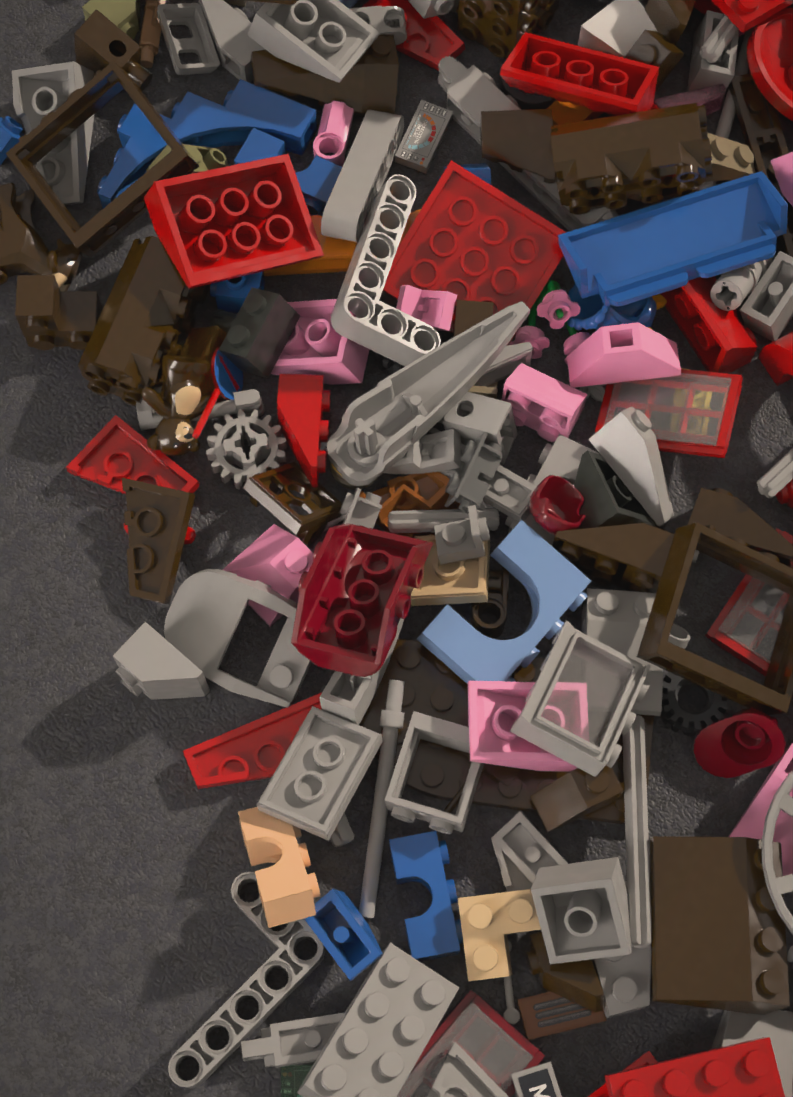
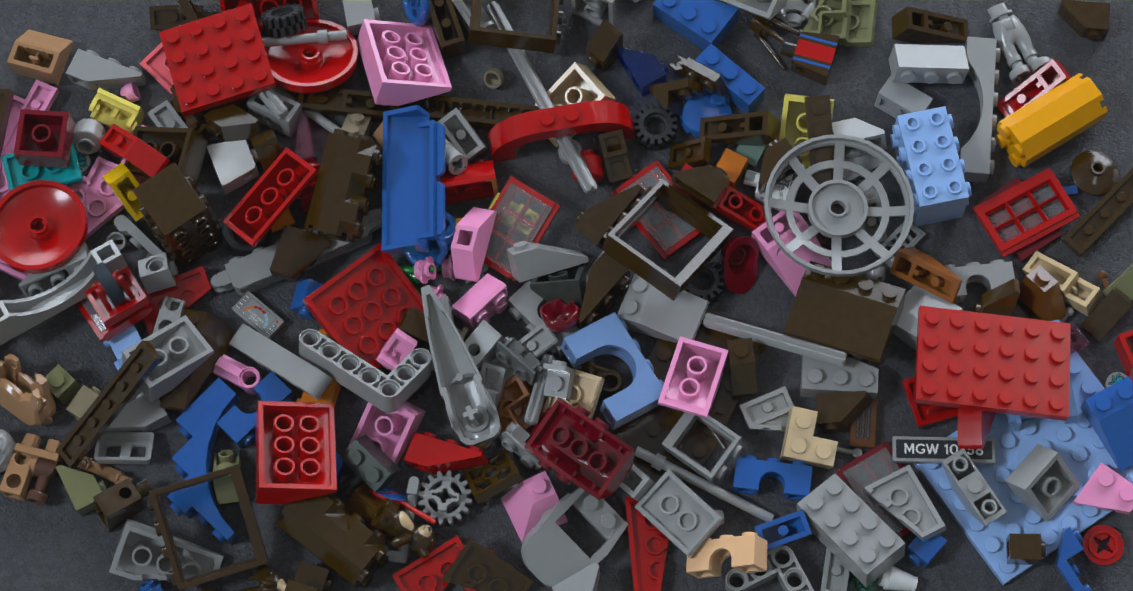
camera: 65 degrees left, 0 degrees up
(582, 701) = (692, 340): window -> none
(583, 910) = (814, 384): light grey slope -> none

